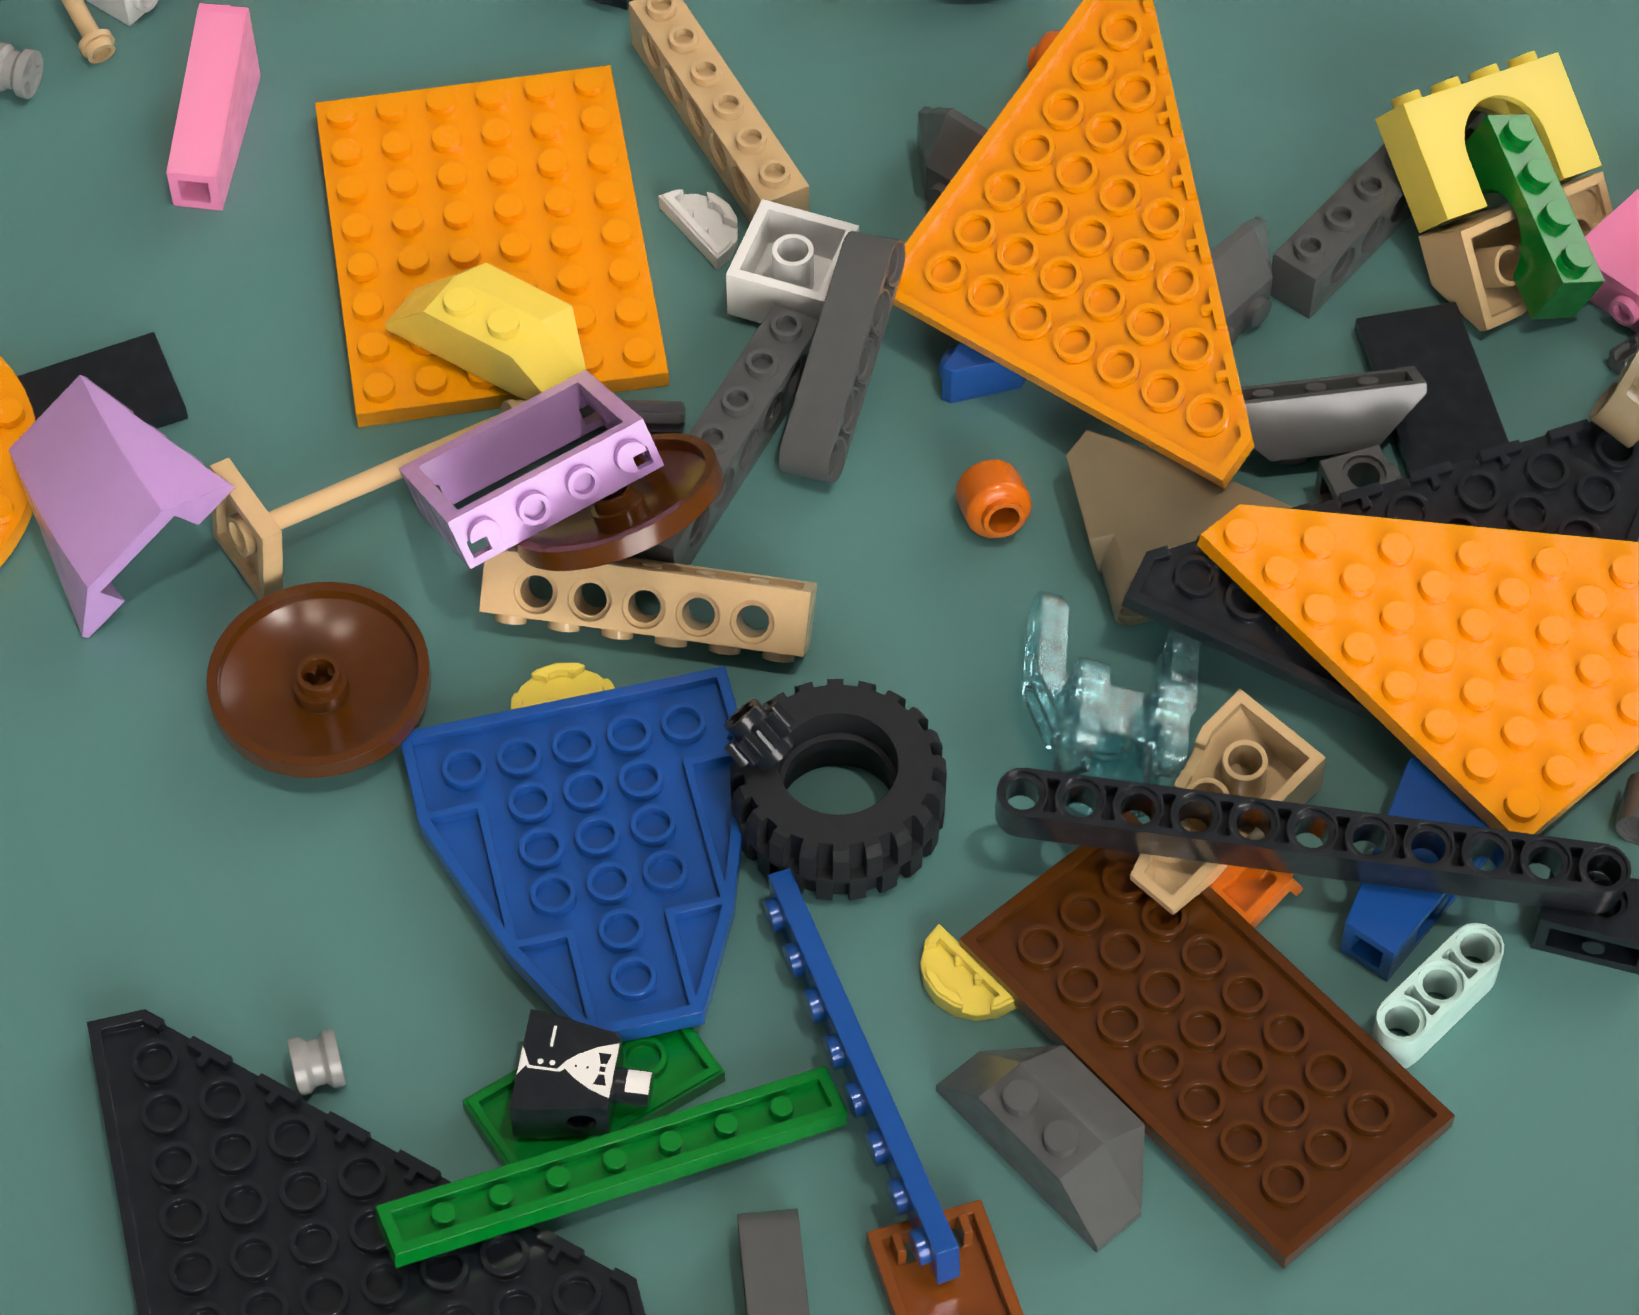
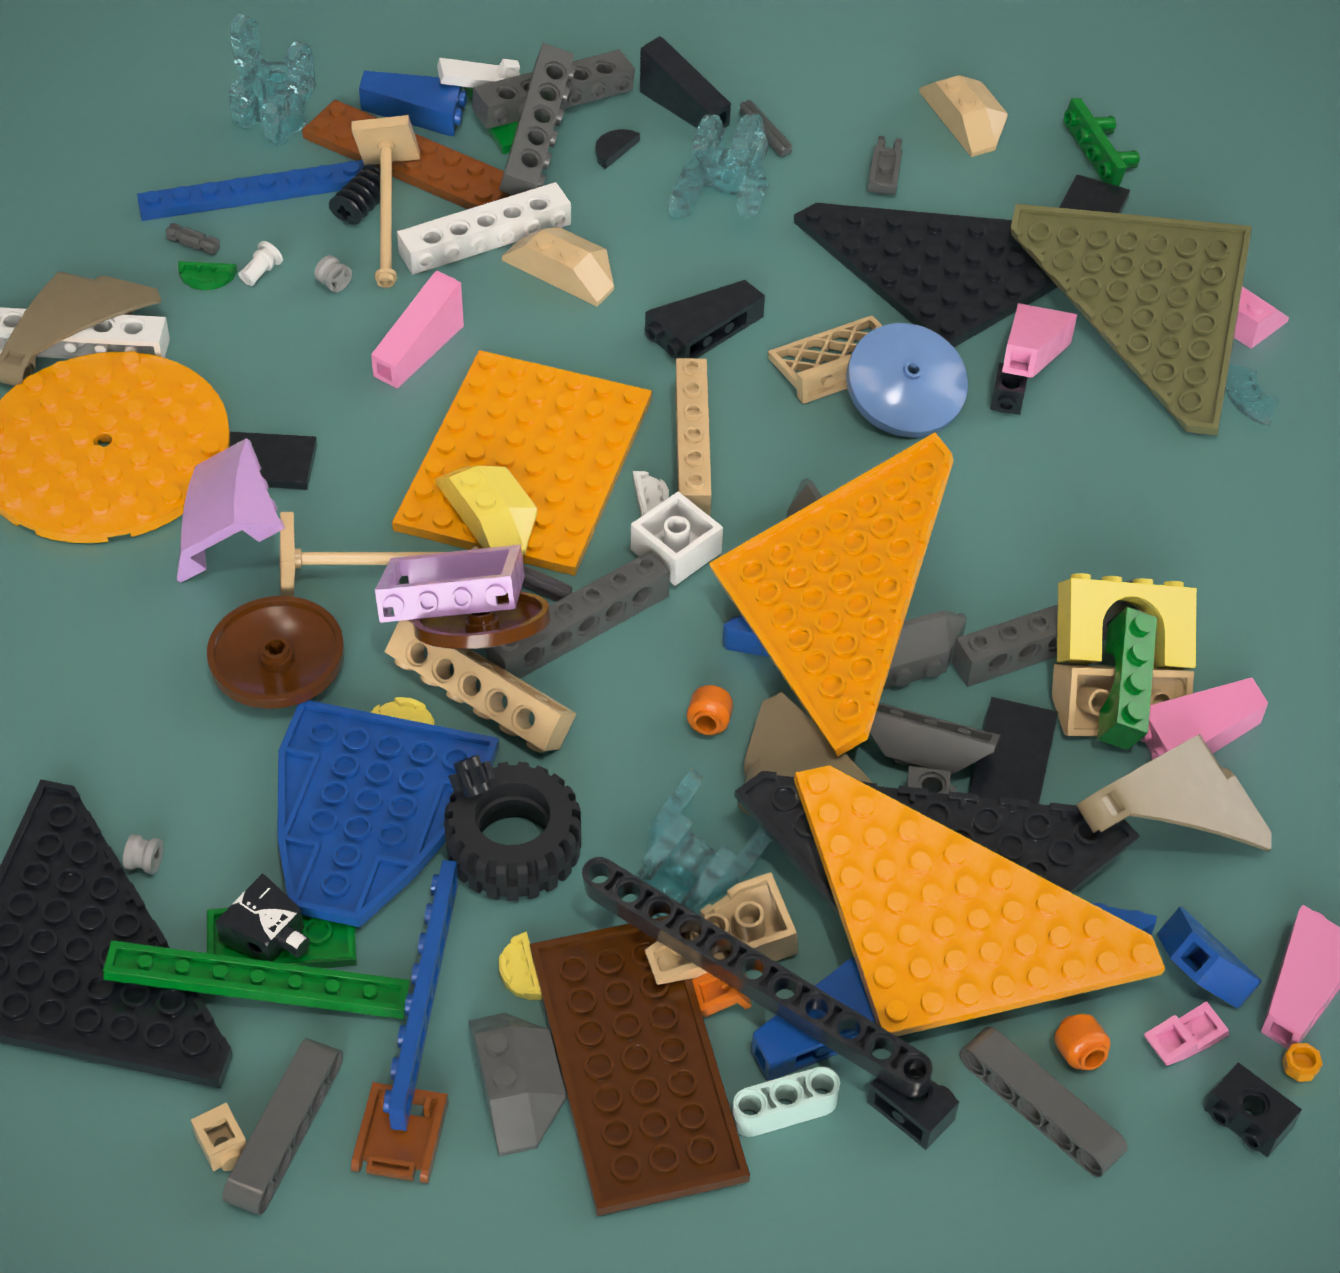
camera: 25 degrees right, 5 degrees down
(842, 357) = (667, 595): dark grey beam -> none

